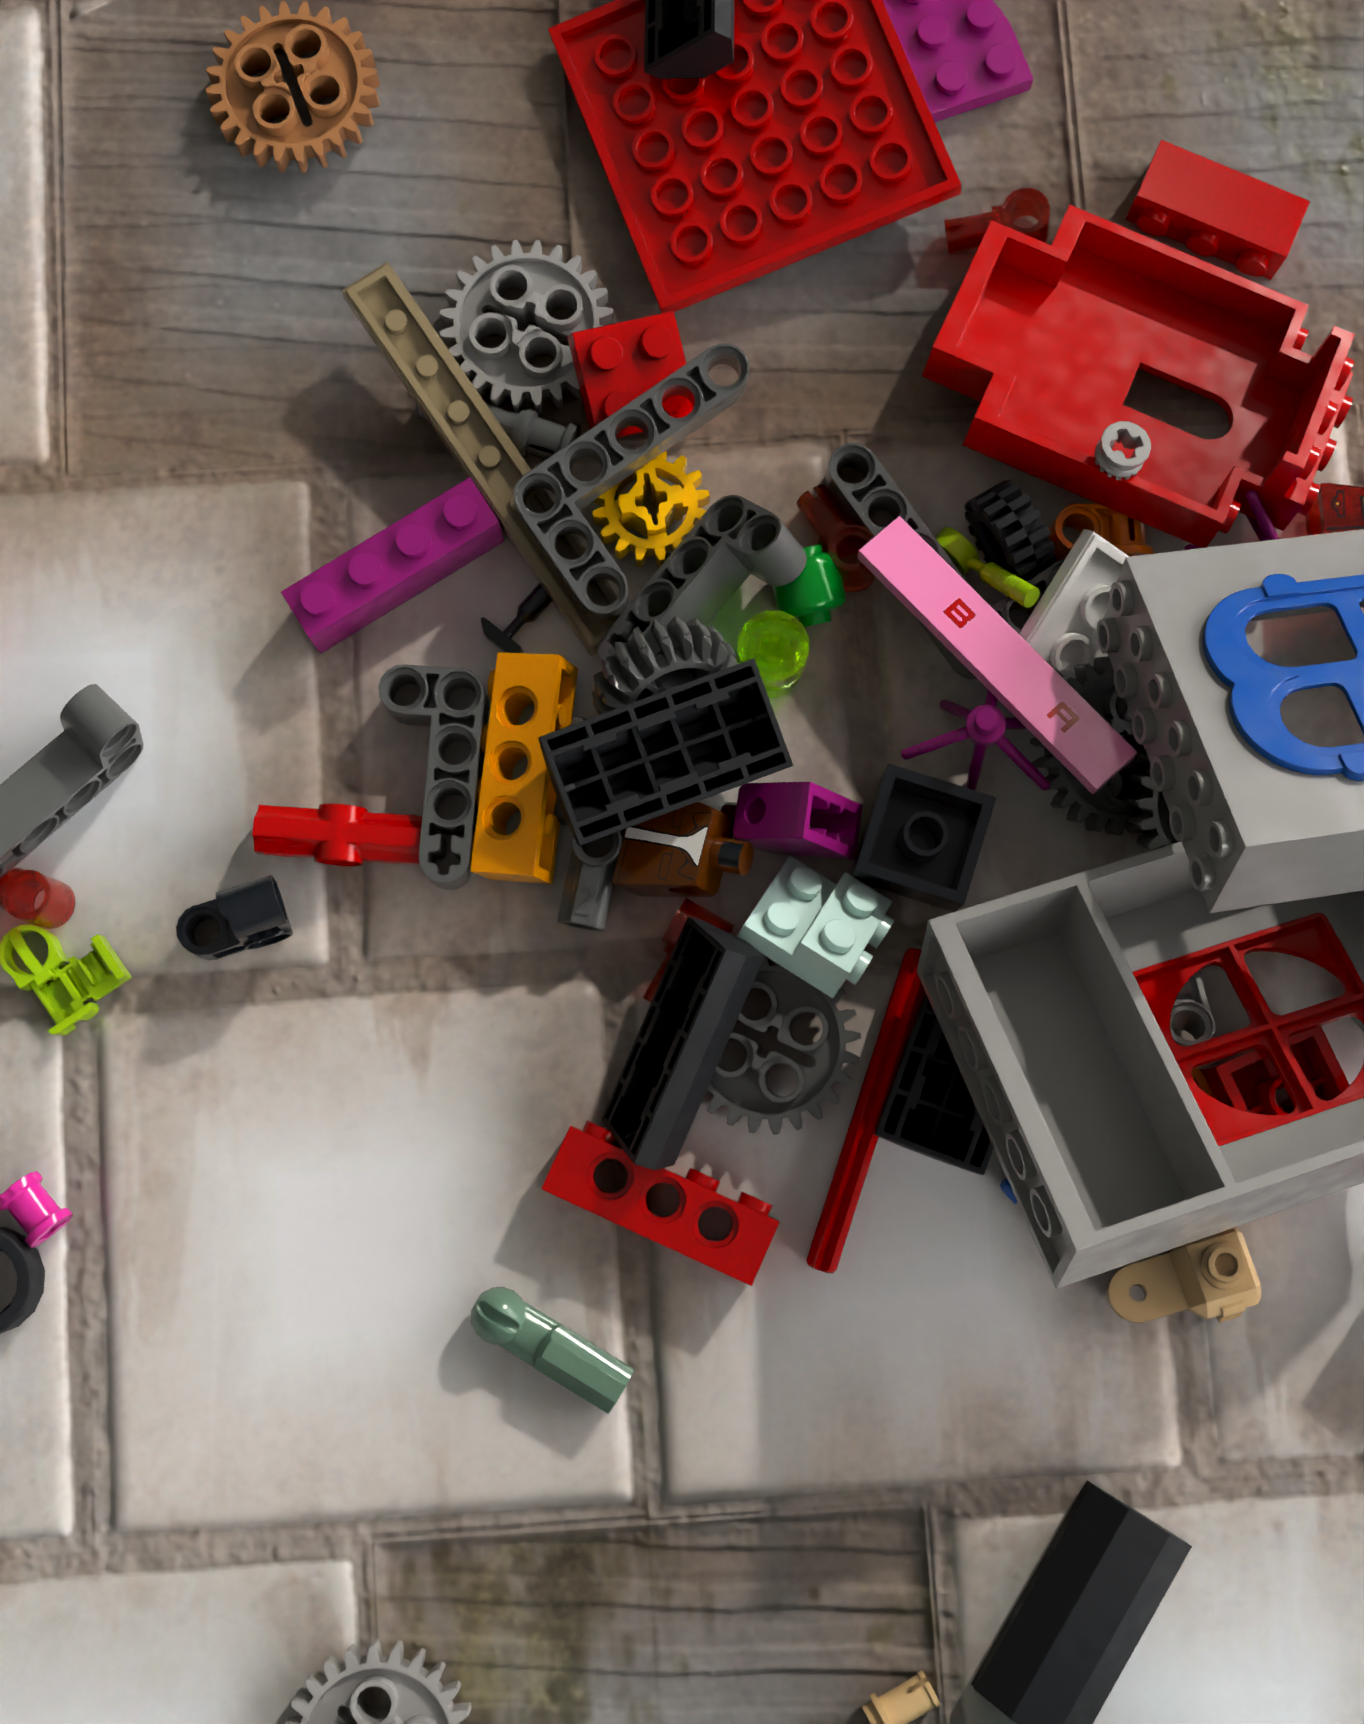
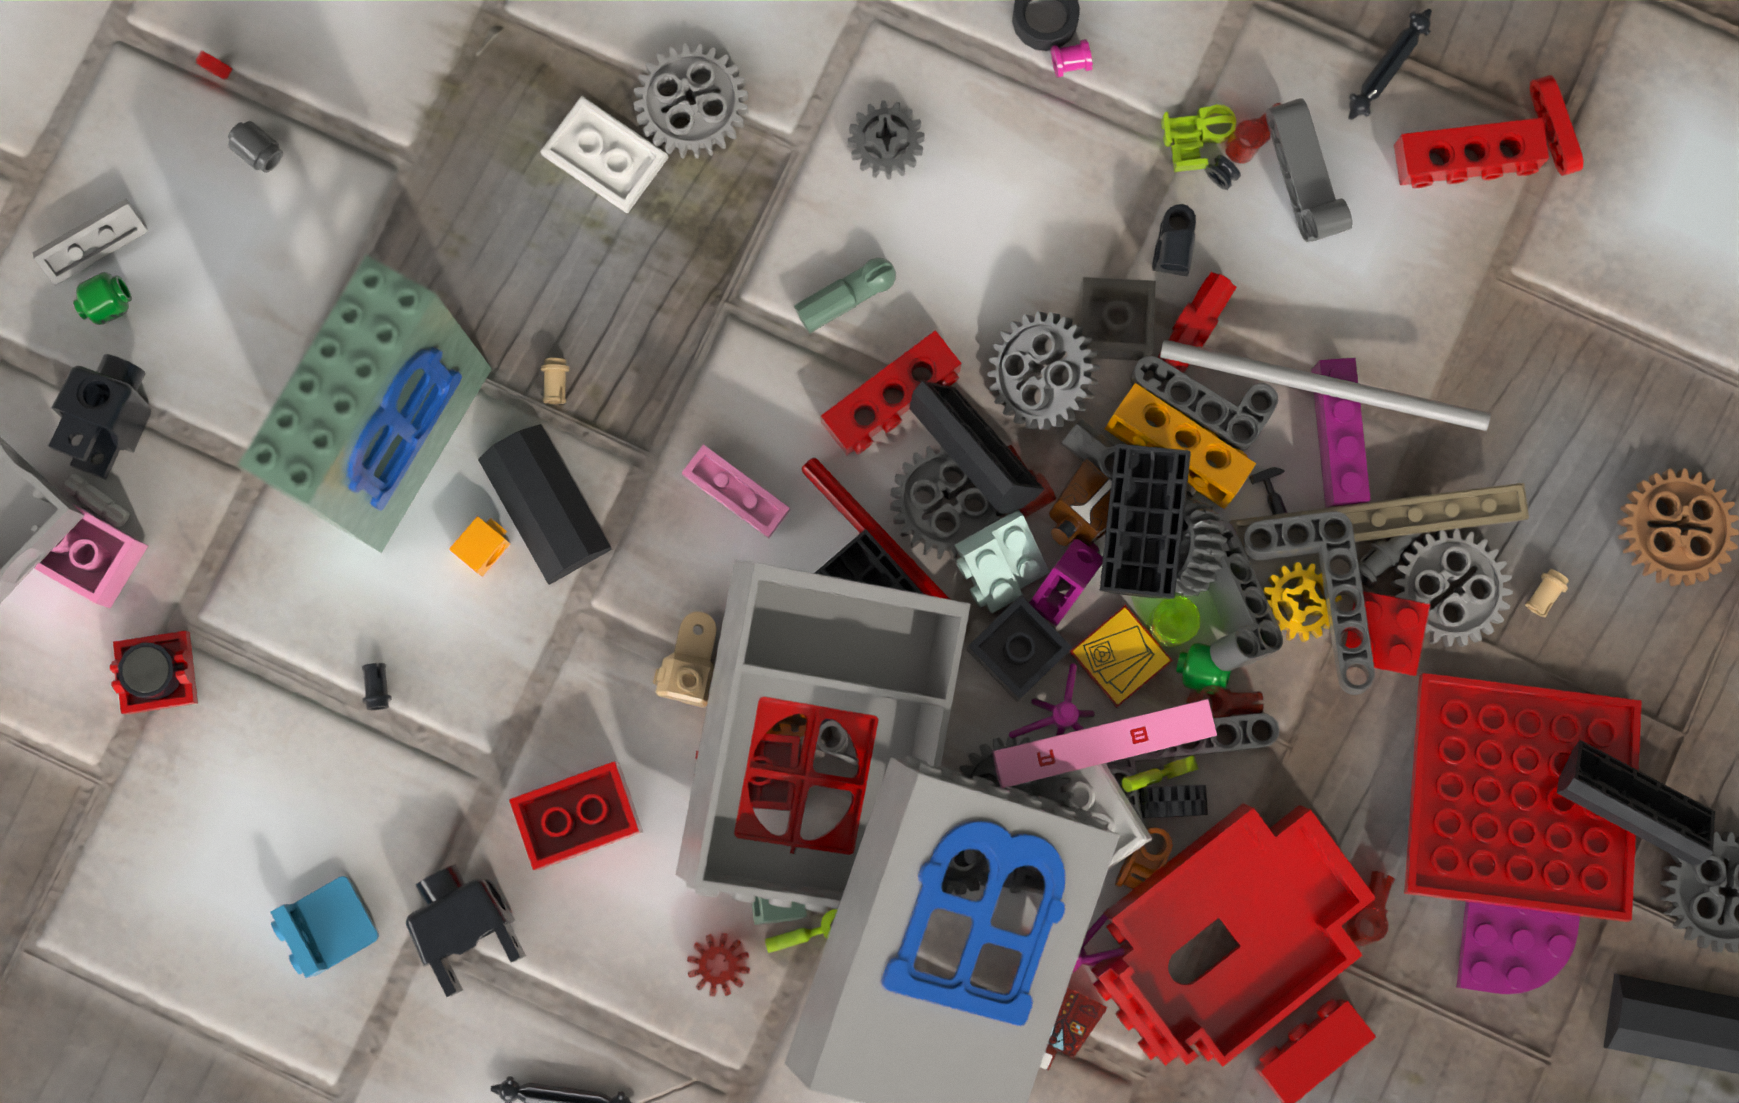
camera: 120 degrees right, 0 degrees up
(99, 908) = (1223, 172): none -> black bush
(301, 1435) = (899, 138): none -> dark grey gear
(344, 610) = (1326, 385): none -> light grey piece
(390, 945) = (1118, 317): none -> clear smoke brick
(467, 208) = (1547, 592): none -> tan pin
(491, 1049) = (1056, 397): none -> dark grey gear
(849, 704) = (1120, 656): none -> yellow tile
(916, 1349) = (736, 491): none -> bright pink plate
(1114, 462) = (1182, 871): light grey bush -> none
(1196, 1676) = (481, 545): none -> light orange brick

